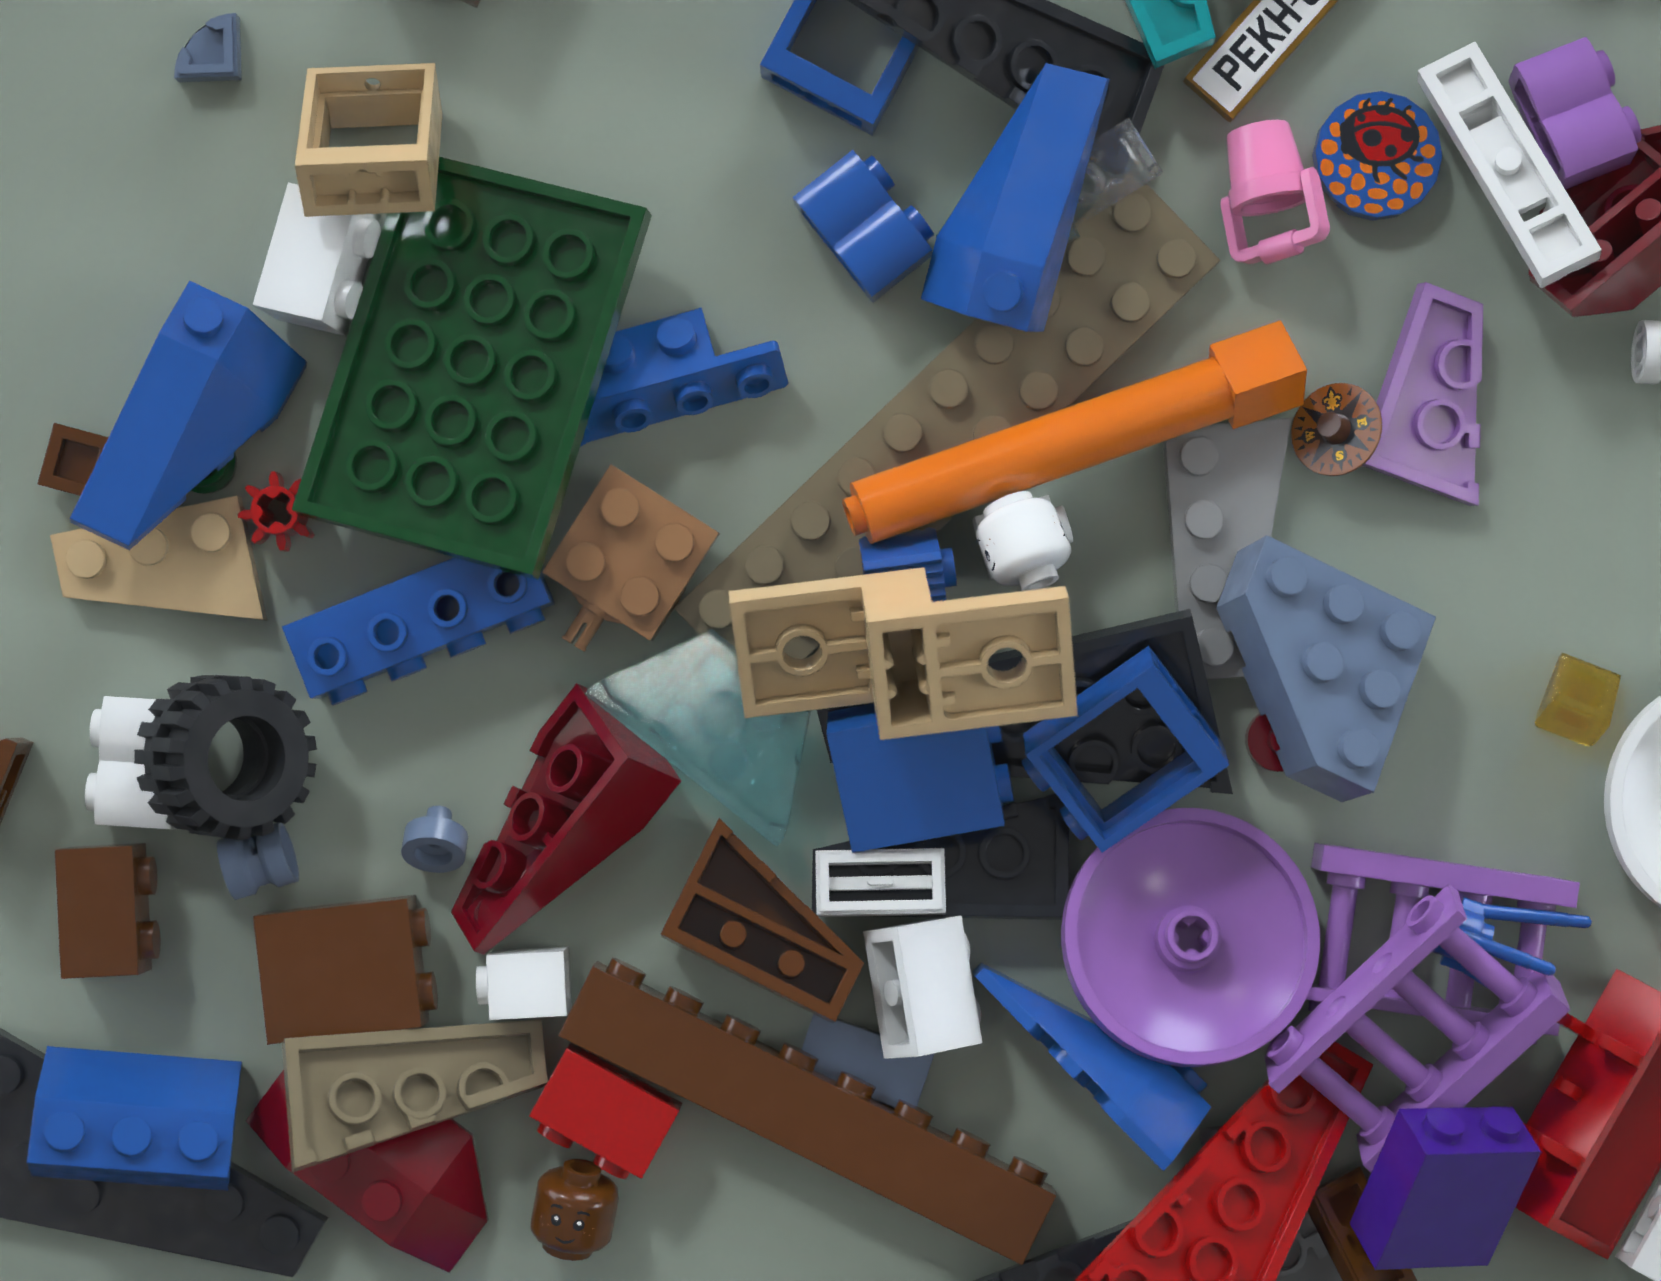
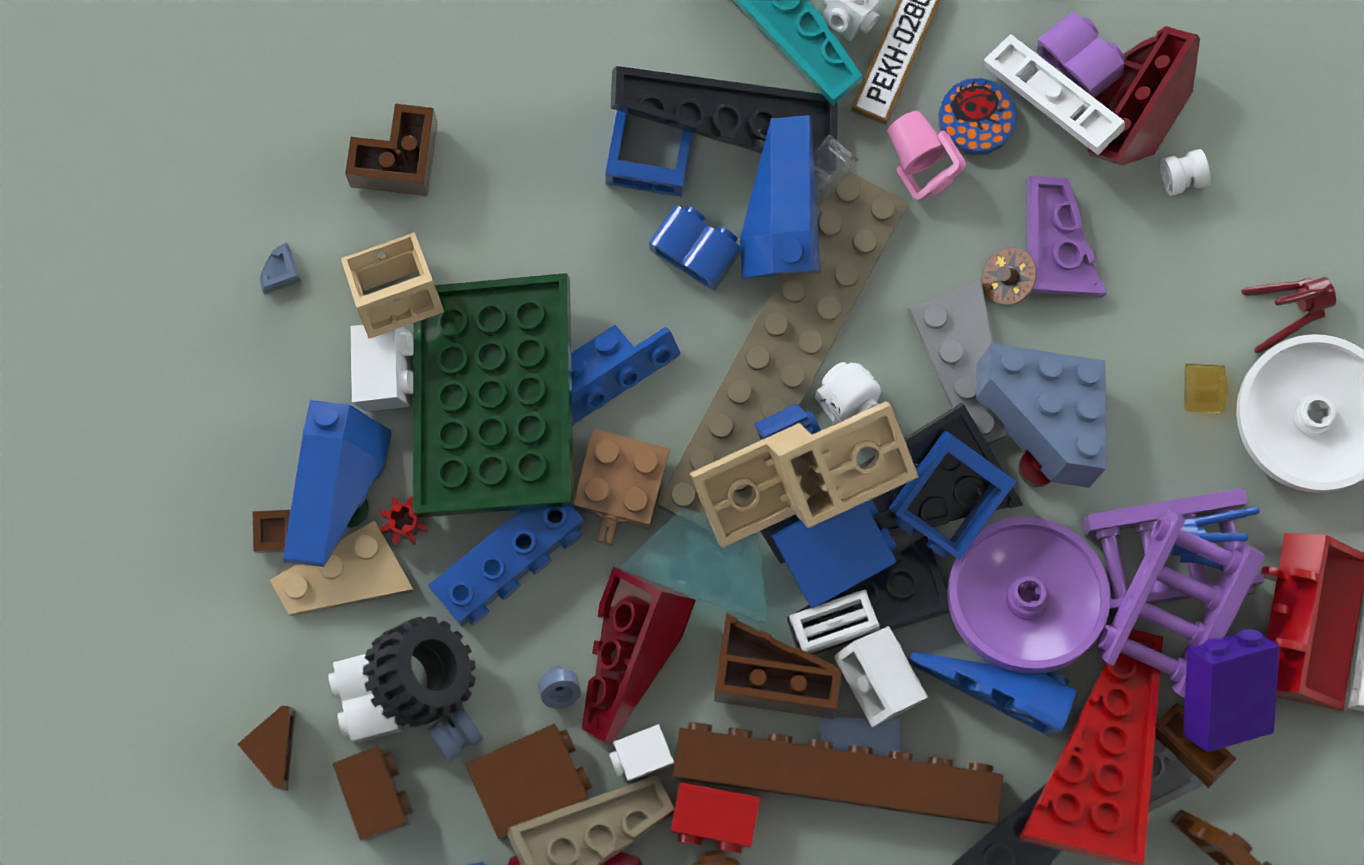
camera: 20 degrees left, 10 degrees down
(1240, 382) = (944, 265): orange brick -> none

